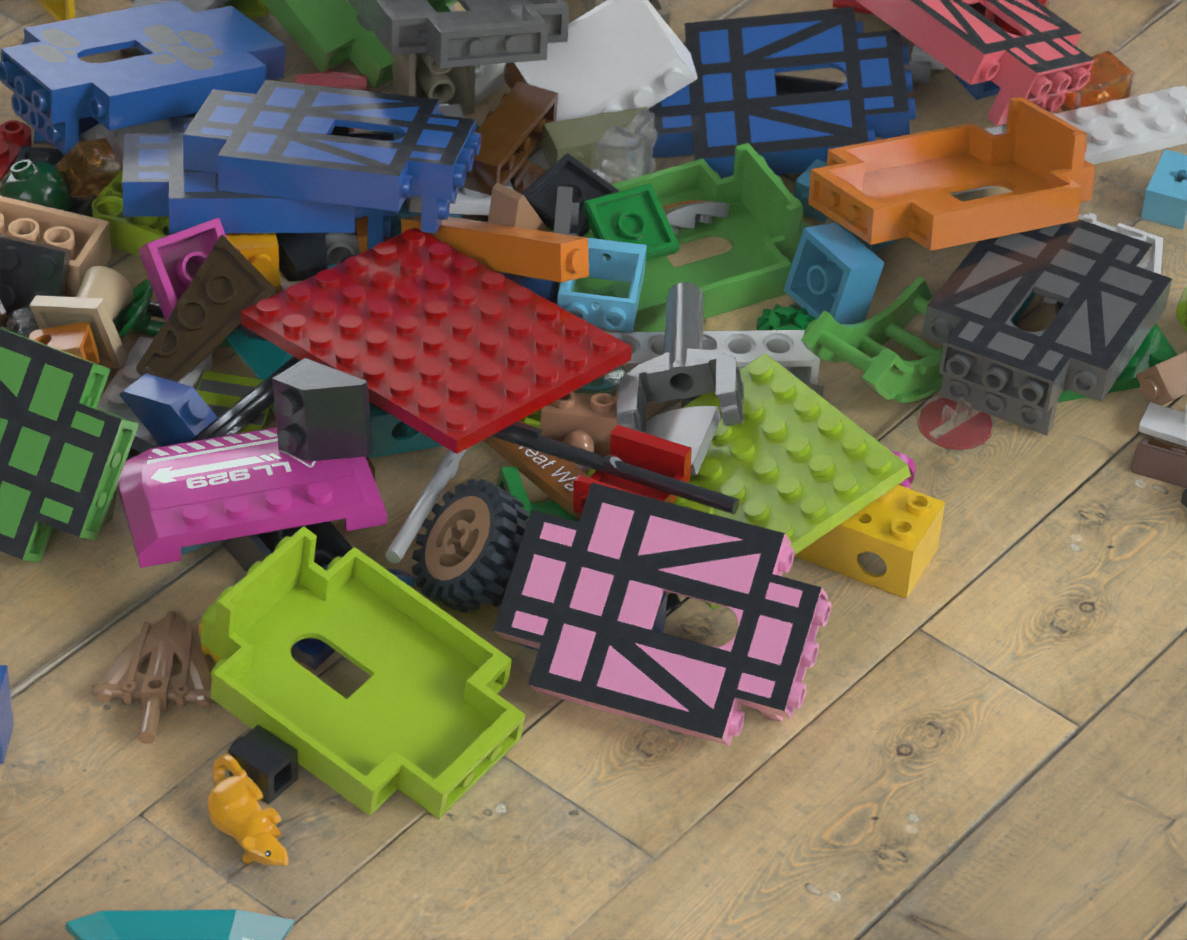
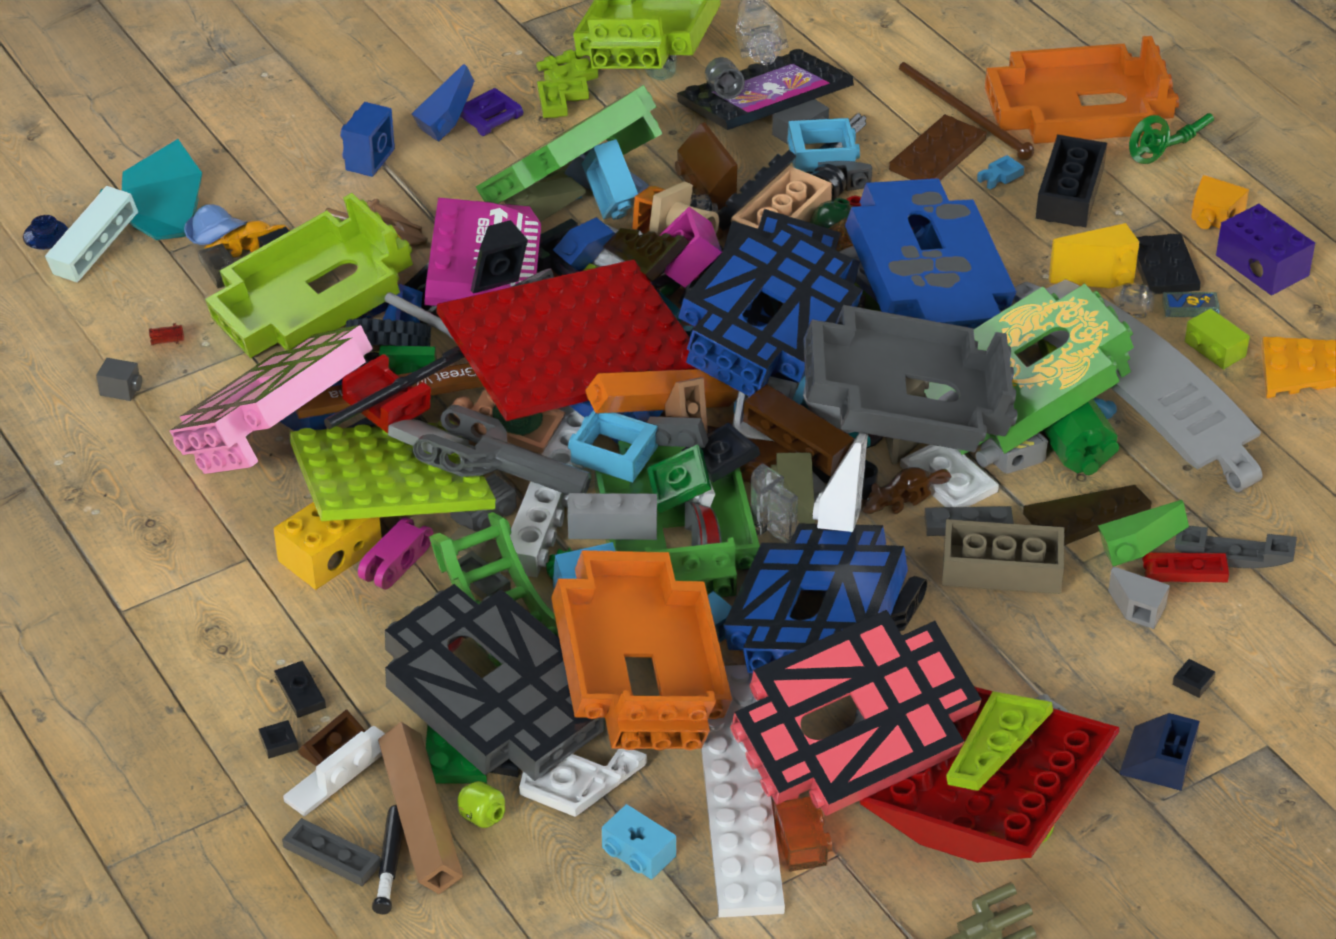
camera: 110 degrees right, 0 degrees up
(236, 857) = (210, 224): none -> medium blue hat
(325, 830) = (214, 260): none -> clear smoke plate
(510, 837) = (166, 334): none -> clear red pin
(647, 862) = (118, 379): none -> dark grey brick
(735, 259) = (612, 516): none -> light grey brick
(849, 392) = (485, 586): none -> dark grey plate
(1116, 509) = (300, 689): none -> black plate

